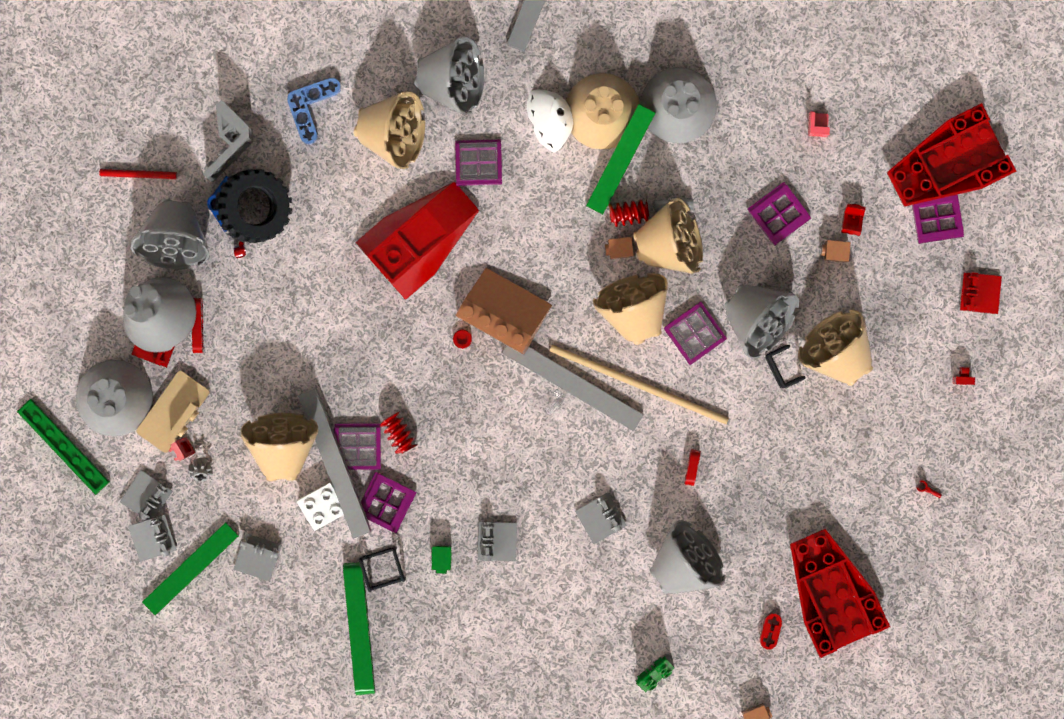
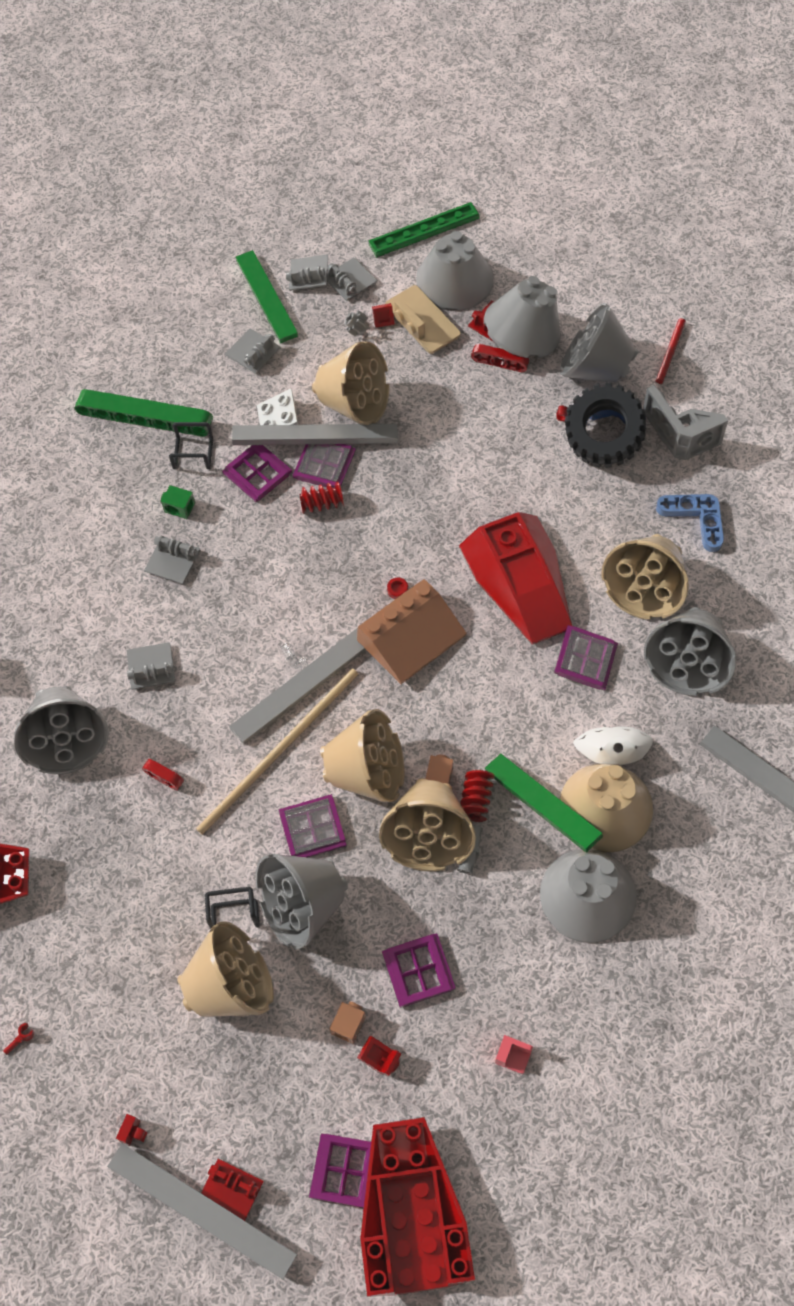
camera: 115 degrees right, 25 degrees down
(998, 307) = (203, 1211): none -> light grey tile

